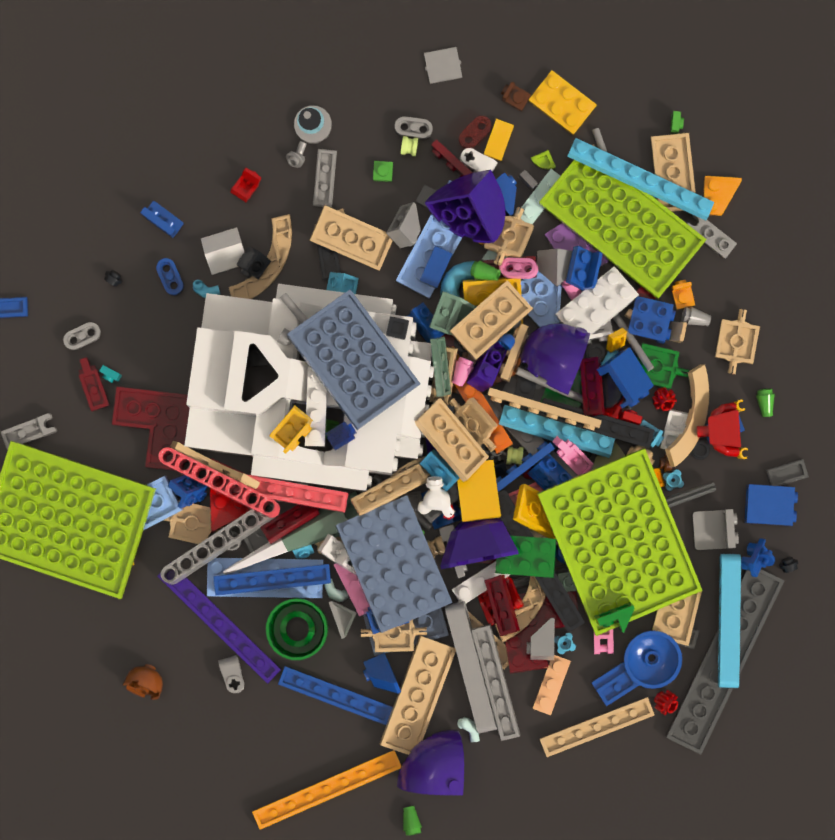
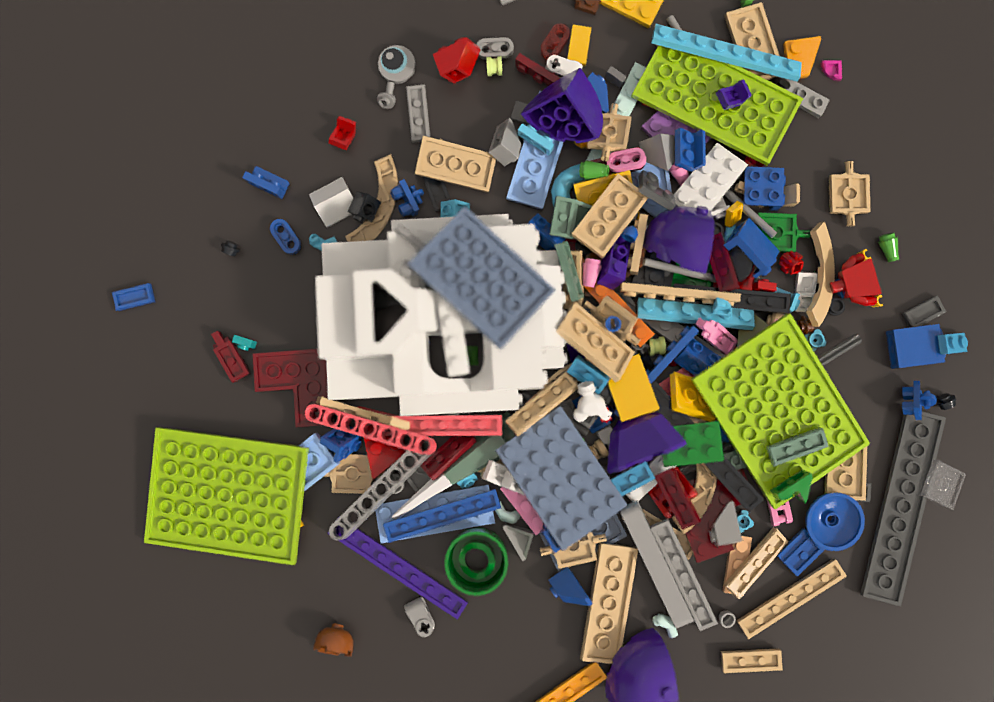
camera: 10 degrees left, 0 degrees up
(28, 431) = (175, 413): light grey plate -> none
(82, 336) = (210, 309): light grey plate -> none
(291, 428) = (431, 362): yellow bracket -> none
(294, 254) = (410, 205): none -> blue hips
(335, 695) = (527, 617): blue plate -> none
(341, 435) = (484, 358): clear blue brick -> none
(372, 136) = (457, 60): none -> red slope
(383, 171) = (473, 96): bright green plate -> none
(397, 328) = (521, 237): black plate -> none
(436, 267) = (543, 177): blue tile -> none
(441, 233) = (541, 142): none -> medium azure plate
(463, 579) = (633, 478): none -> dark azure plate
(467, 425) = (617, 322): none -> blue hinge
(530, 737) = (726, 618): none -> light grey hinge
(536, 301) = (649, 186): none -> dark grey plate
(544, 160) = (626, 57): lime tile -> none
(545, 779) = (751, 660): none -> tan plate
(569, 685) = (756, 563): none -> tan tile
(581, 430) = (721, 307): none -> medium azure tile
(628, 578) = (797, 446): none -> sand green tile
(636, 224) = (734, 95): none -> dark purple bracket
(666, 702) = (855, 560): red gear -> none
(682, 294) = (787, 158): light orange bracket -> none
(695, 317) = (804, 177): light grey cone -> none
(715, 529) = (868, 380): light grey bracket -> none
(729, 621) = (903, 468): medium azure beam -> none
(747, 212) = (832, 69): none -> dark pink tile
(768, 645) = (943, 484): none -> clear tile
(805, 509) = (952, 343): none -> dark azure plate

